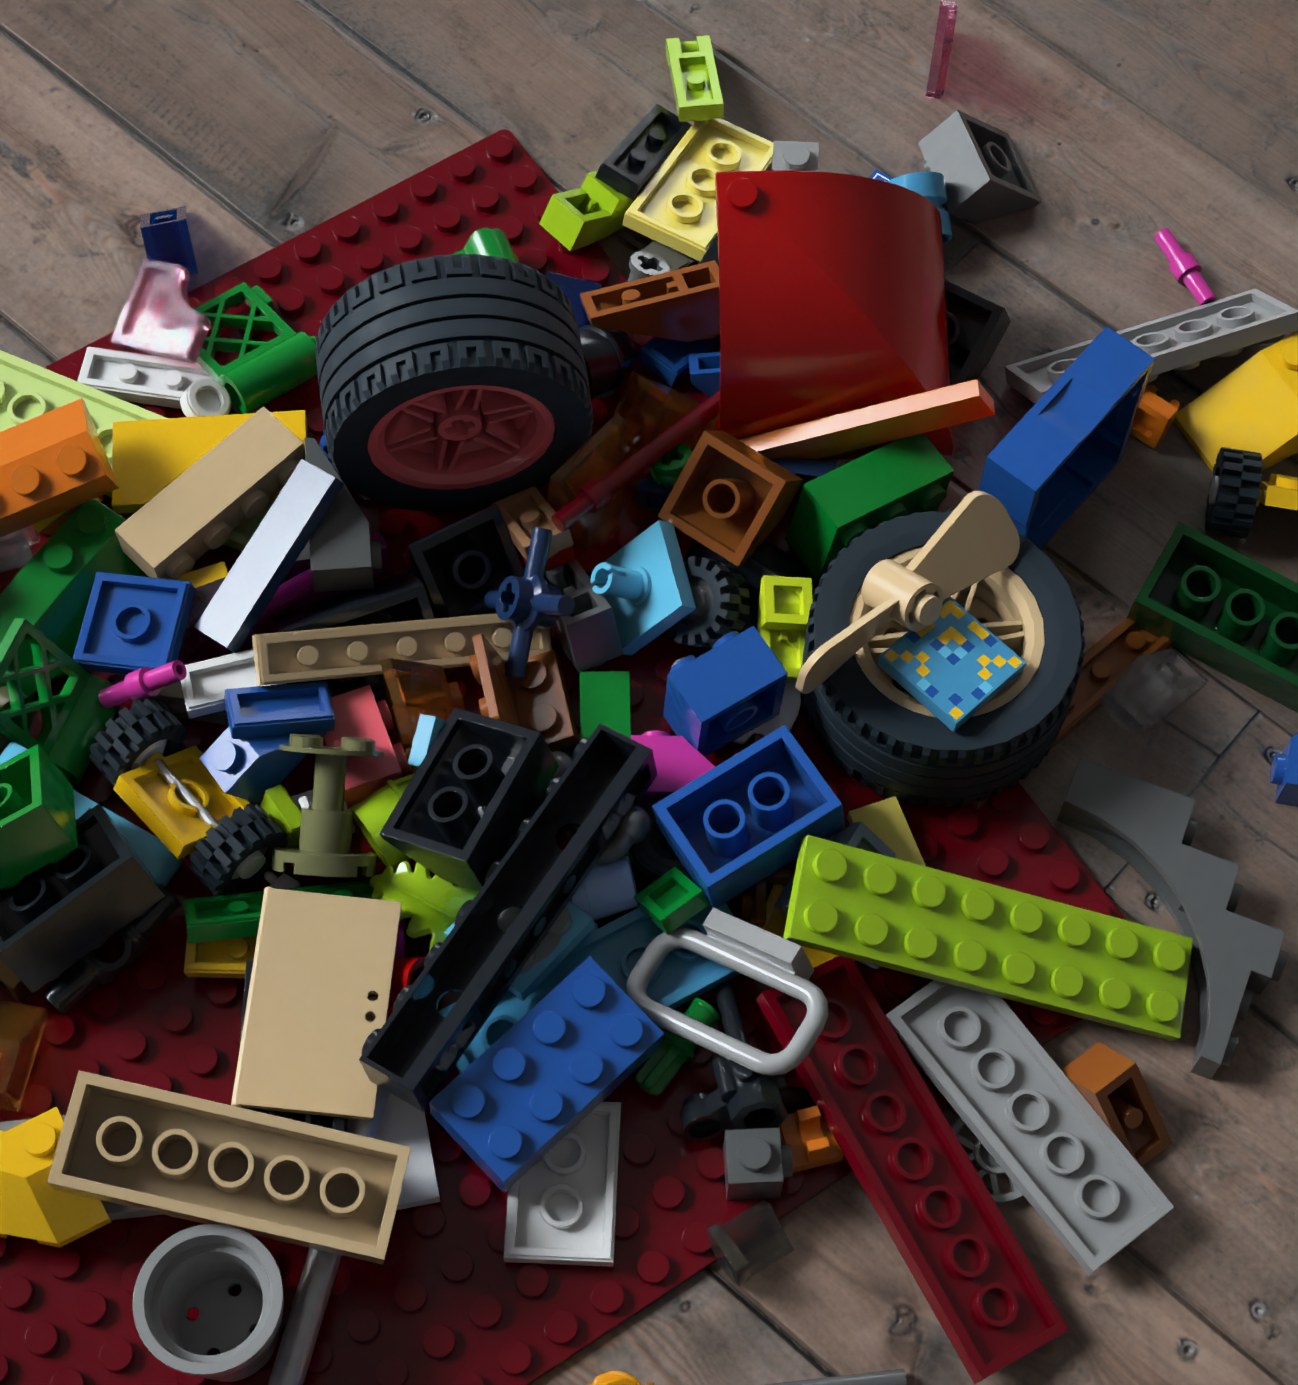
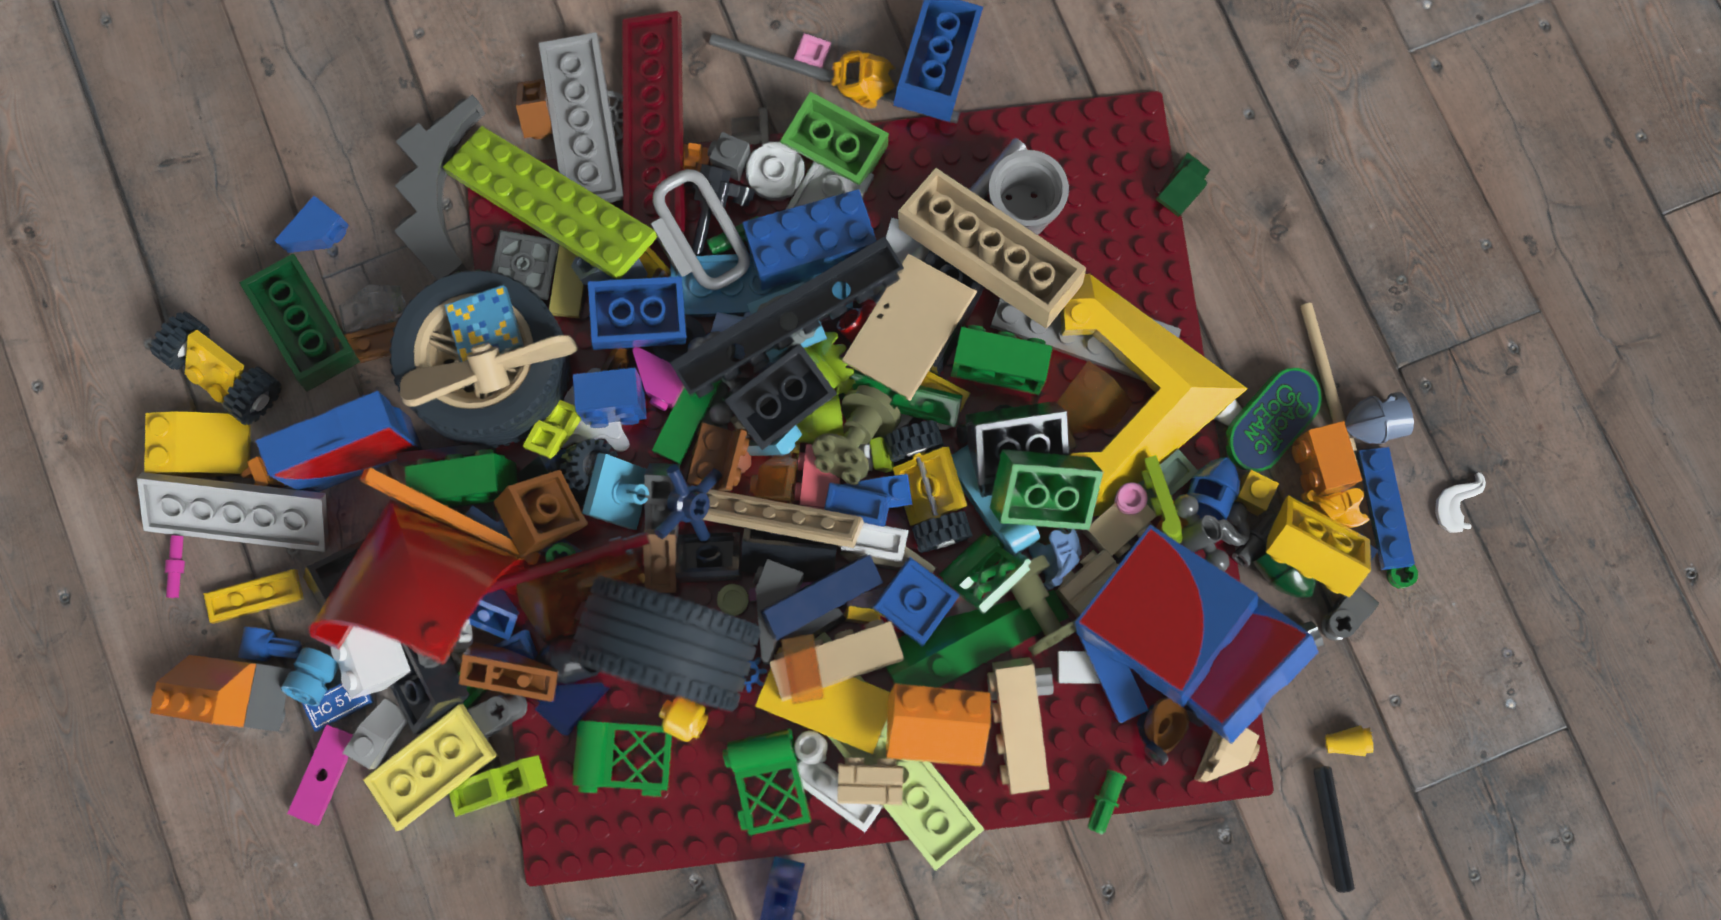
camera: 155 degrees left, 15 degrees up
(107, 378) = (870, 783): none -> tan brick
(142, 684) = (926, 556): dark pink bar -> none
(152, 1028) = (1001, 359): none -> green brick
(159, 315) = (813, 826): clear pink tile -> none
(248, 447) = (803, 669): none -> clear orange tile
(402, 534) = (733, 600): none -> yellowish green tile
(590, 1265) = (836, 139): none -> bright green slope
(642, 152) = (452, 809): black tile -> none
(671, 900) = (700, 299): green plate -> none
(671, 1189) = (775, 171): none -> white tile
(694, 79) = (388, 856): lime plate -> none
(834, 122) = (313, 792): none -> dark pink tile
(941, 49) = (215, 799): clear pink tile -> none
(977, 839) = (526, 260): none -> dark grey piece
(1010, 228) = (262, 645): none -> blue axle
(1035, 131) = (205, 691): none -> orange slope
(1061, 281) = (253, 596): none -> yellow tile

